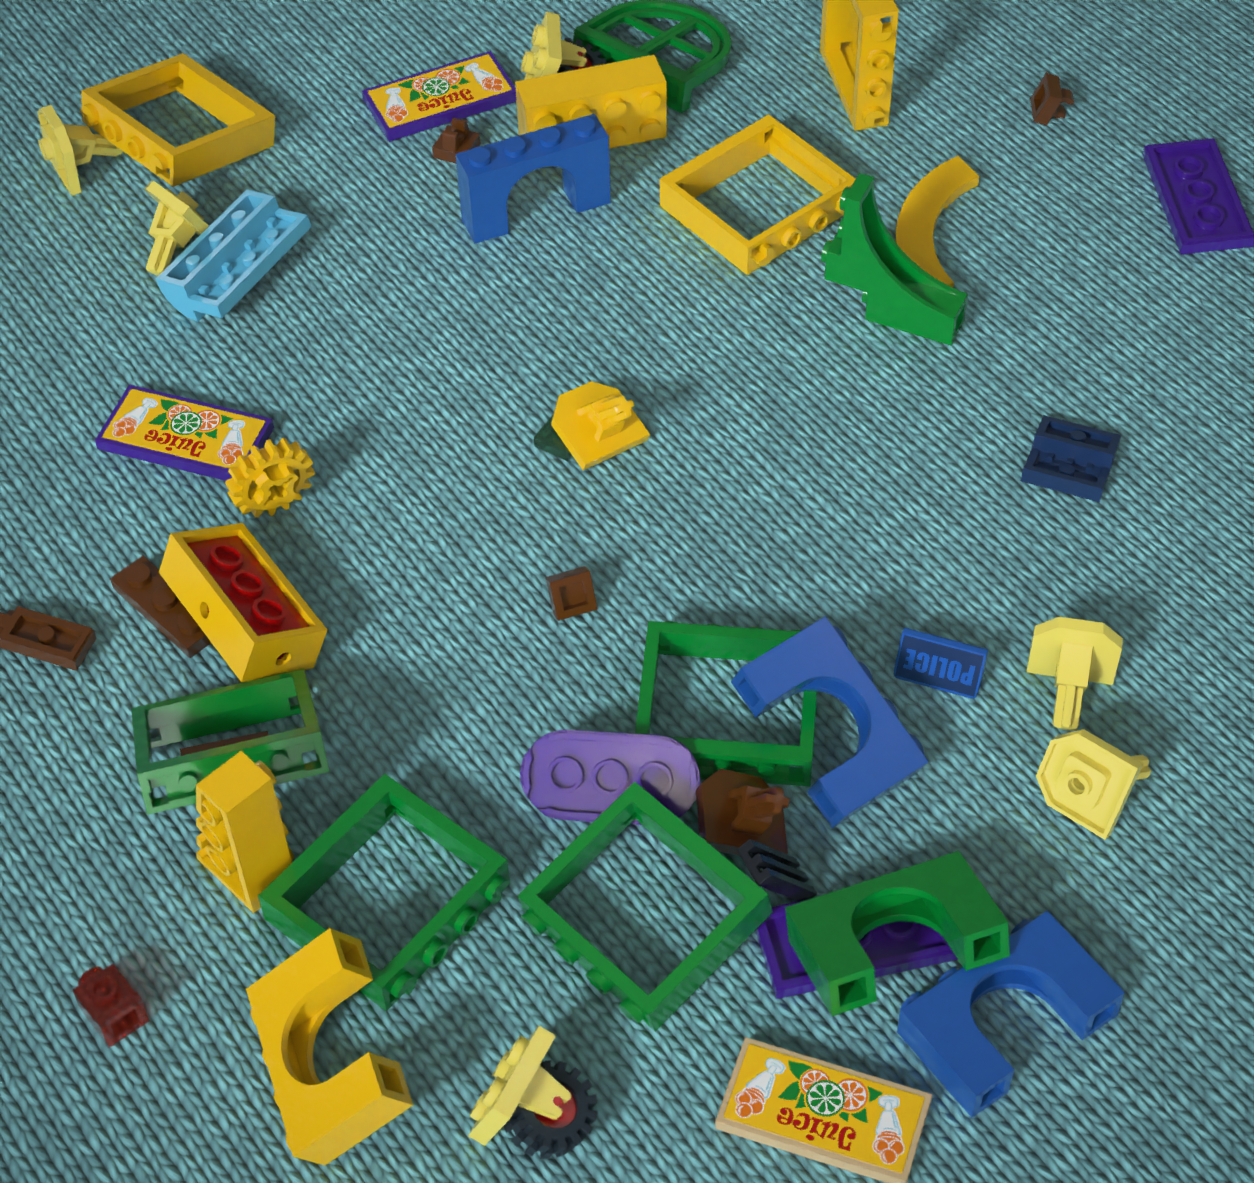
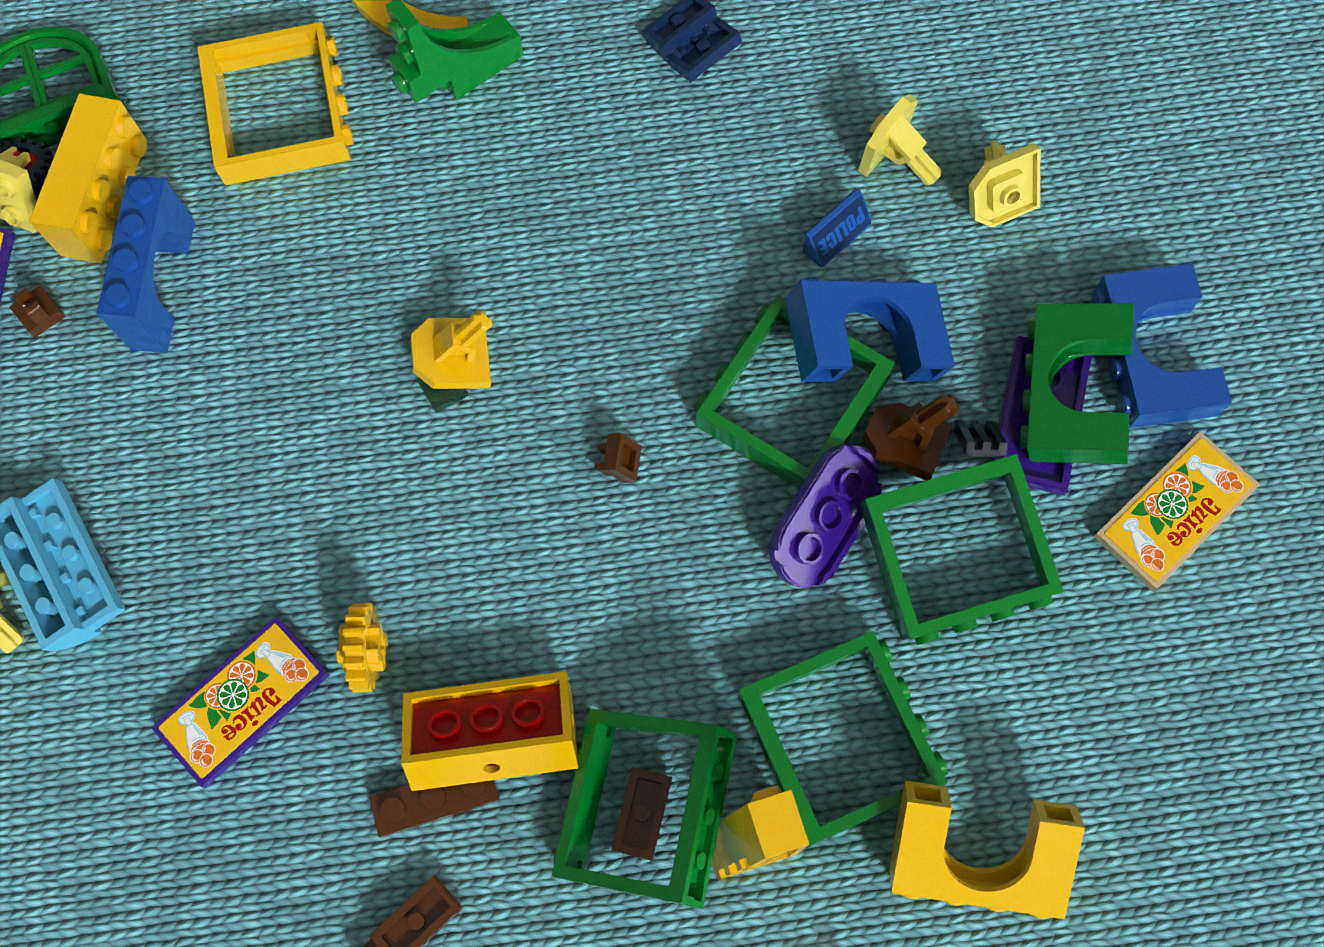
camera: 60 degrees left, 20 degrees up
(535, 1100) = (1092, 714): plate -> none

